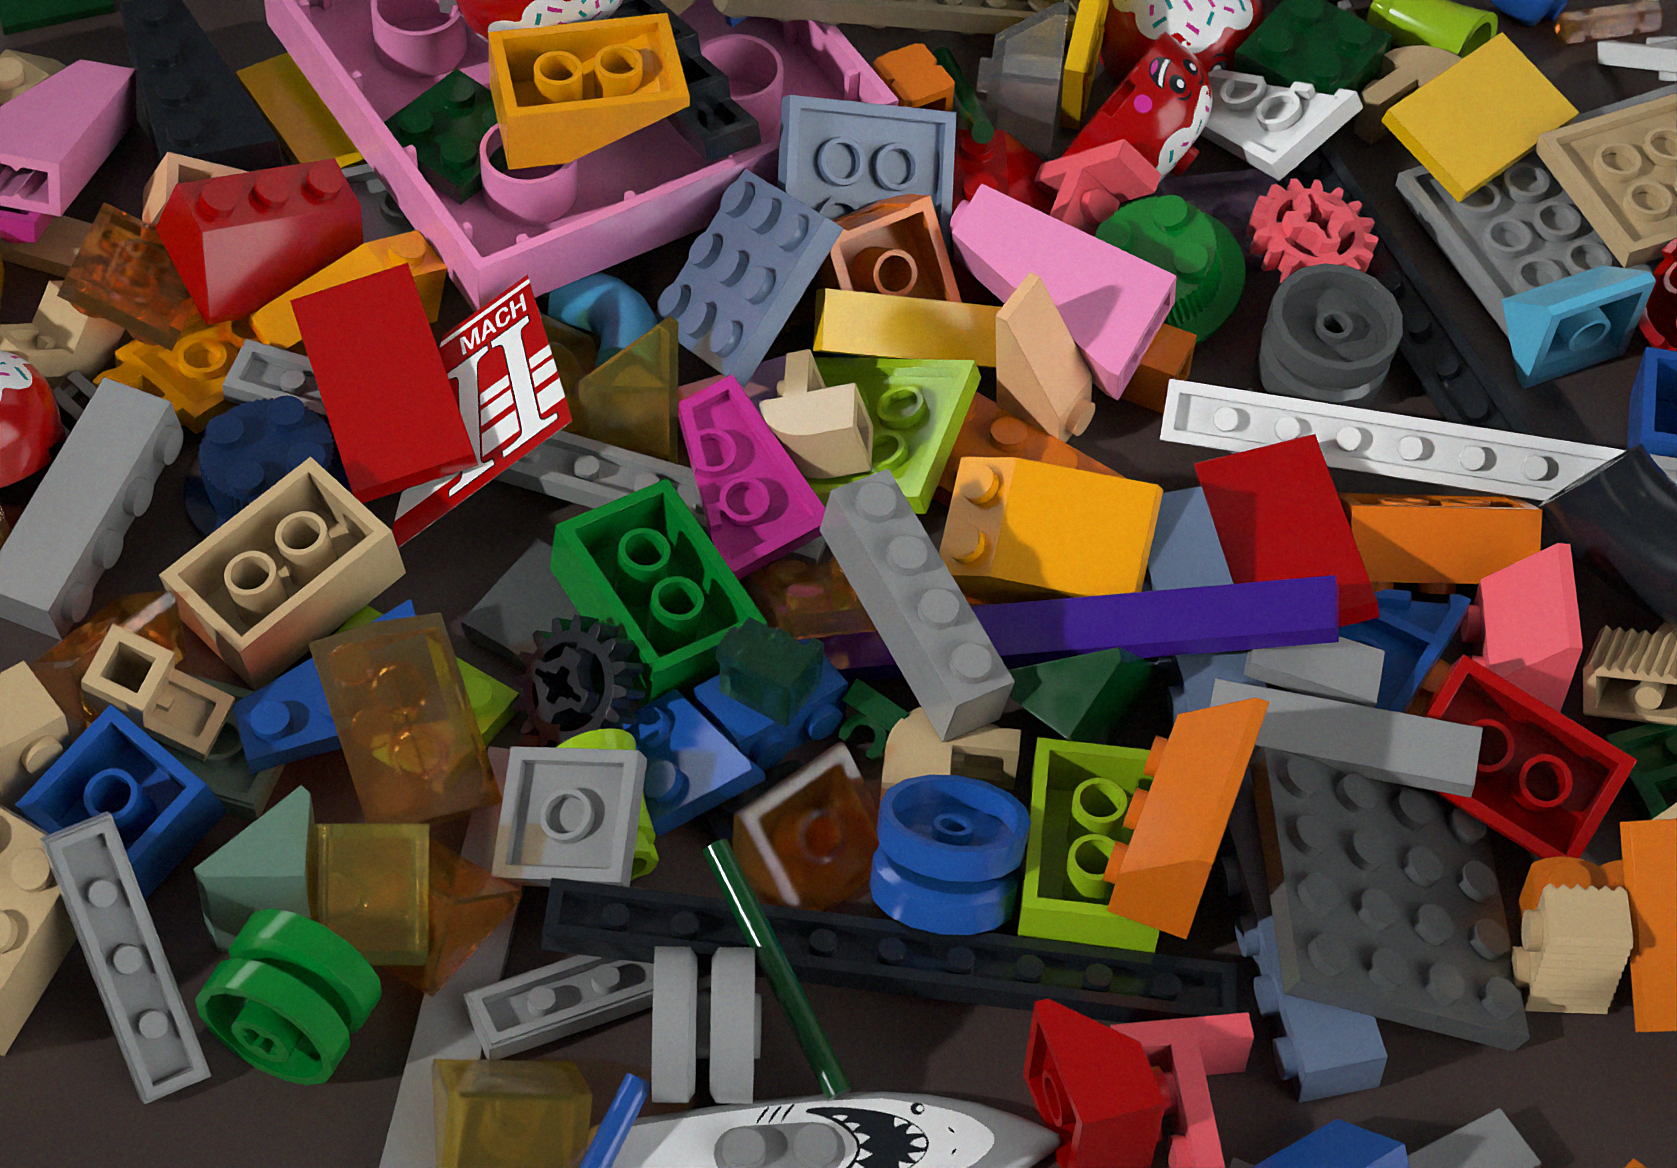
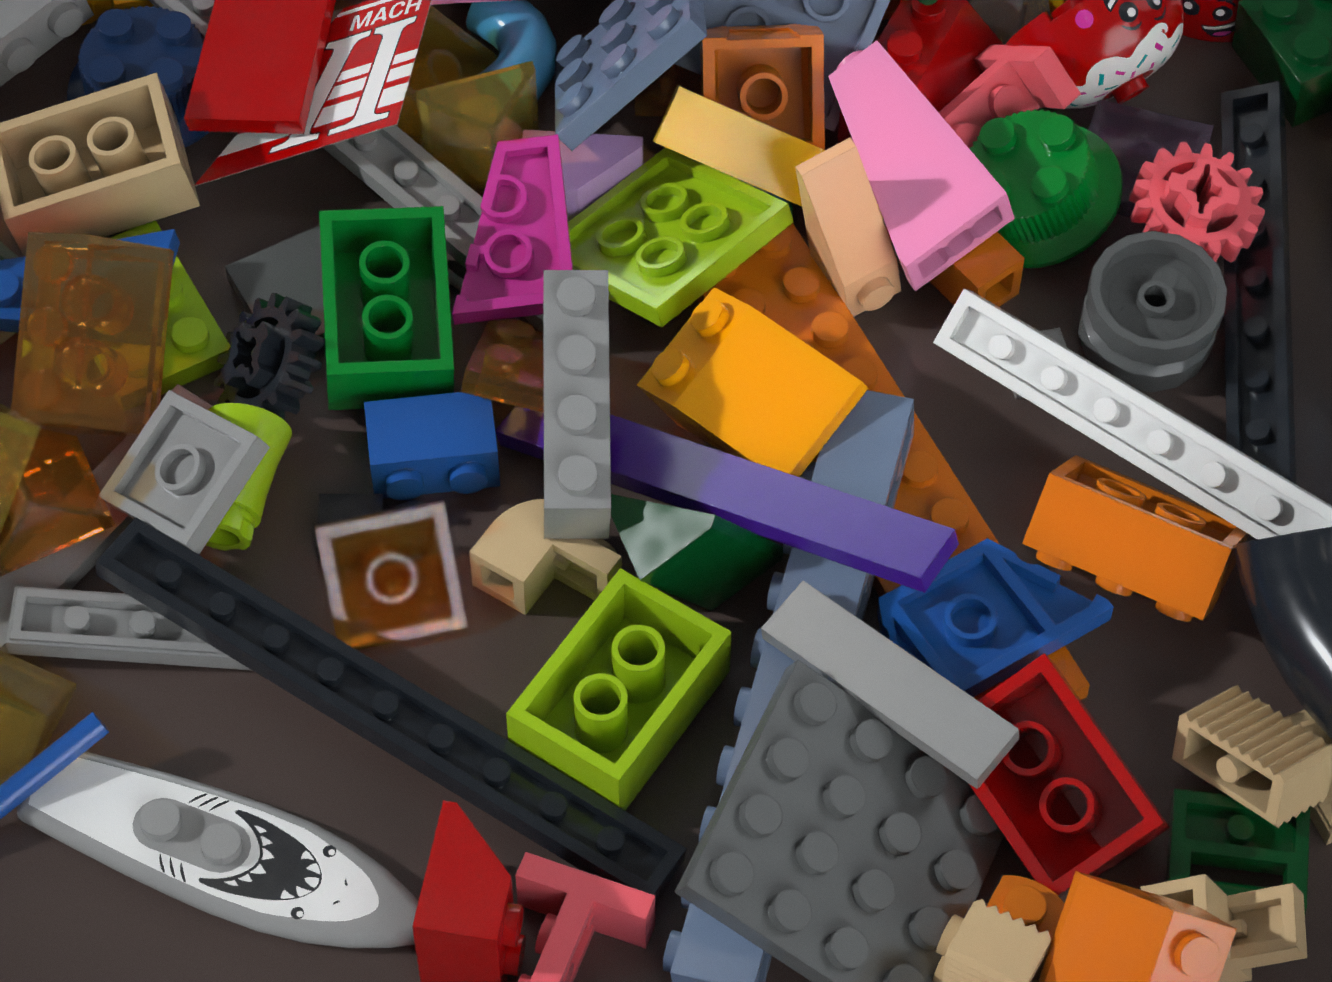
camera: 30 degrees right, 5 degrees up
(688, 762) = (322, 463): blue wing -> none
(705, 1025) = (178, 698): light grey wheel -> none
(769, 669) = (425, 411): clear green brick -> none
(777, 970) = (268, 677): dark green bar -> none
(819, 426) = (618, 205): tan brick -> none
(876, 714) = (515, 483): dark green tile -> none
(949, 854) = (480, 637): blue wheel -> none
(1182, 815) = (684, 695): orange slope -> none
(1273, 124) = (1231, 79): white wing -> none
(1286, 521) = (984, 471): red tile -> none
(1330, 671) = (929, 623): light grey tile -> none
(1529, 624) = (1149, 664): coral slope -> none

